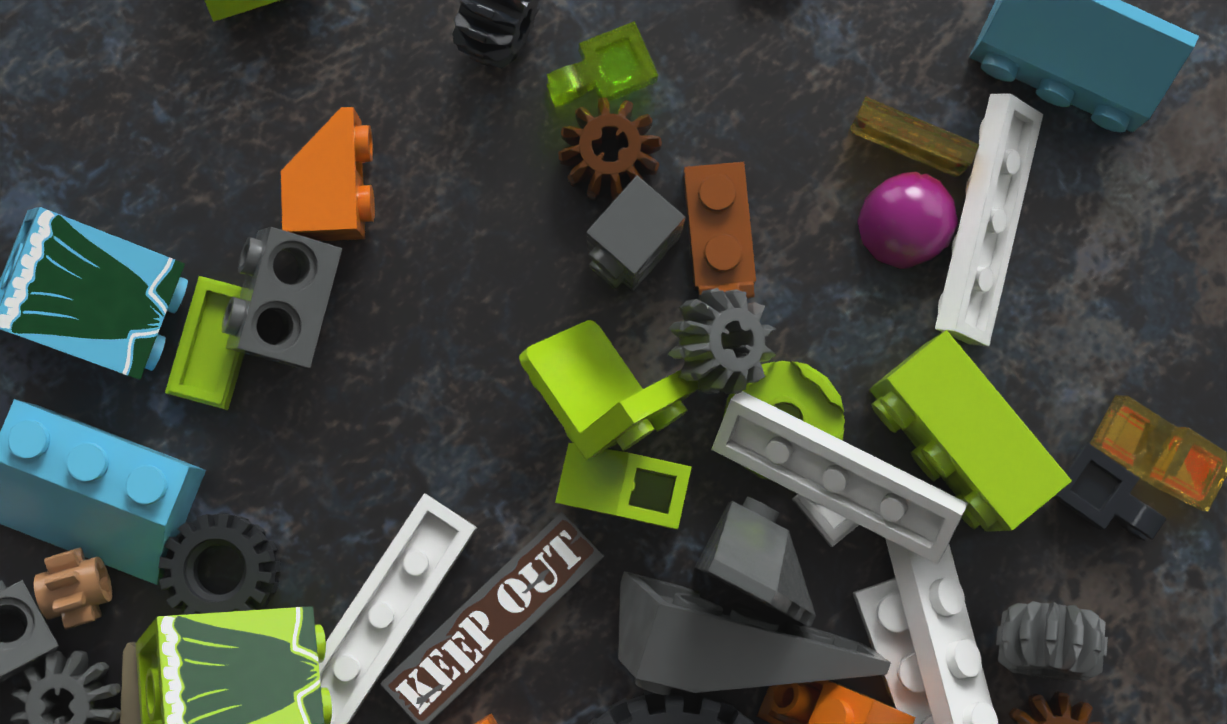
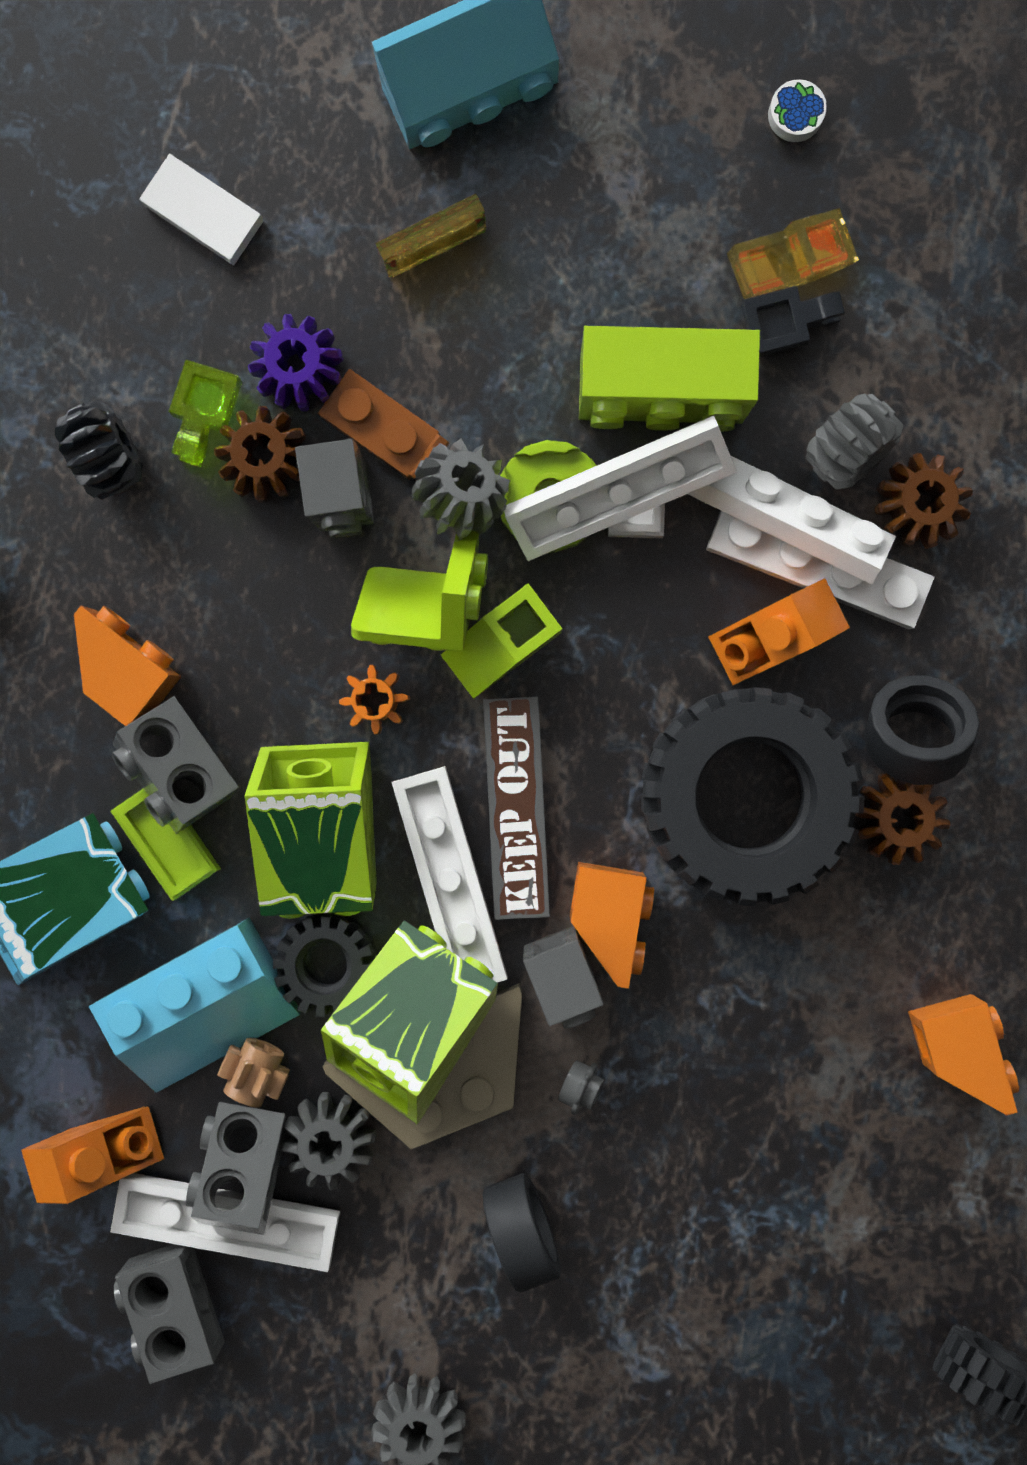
camera: 50 degrees left, 5 degrees up
(327, 461) = (313, 829): none -> slope
(485, 402) = (363, 688): none -> orange gear
(692, 645) = (645, 687): dark grey wedge -> none
(693, 98) = (280, 377): none -> dark purple gear
(758, 559) = (629, 593): dark grey wedge -> none
(907, 220) = (485, 290): magenta hair -> none
(989, 220) = (532, 232): white plate -> none

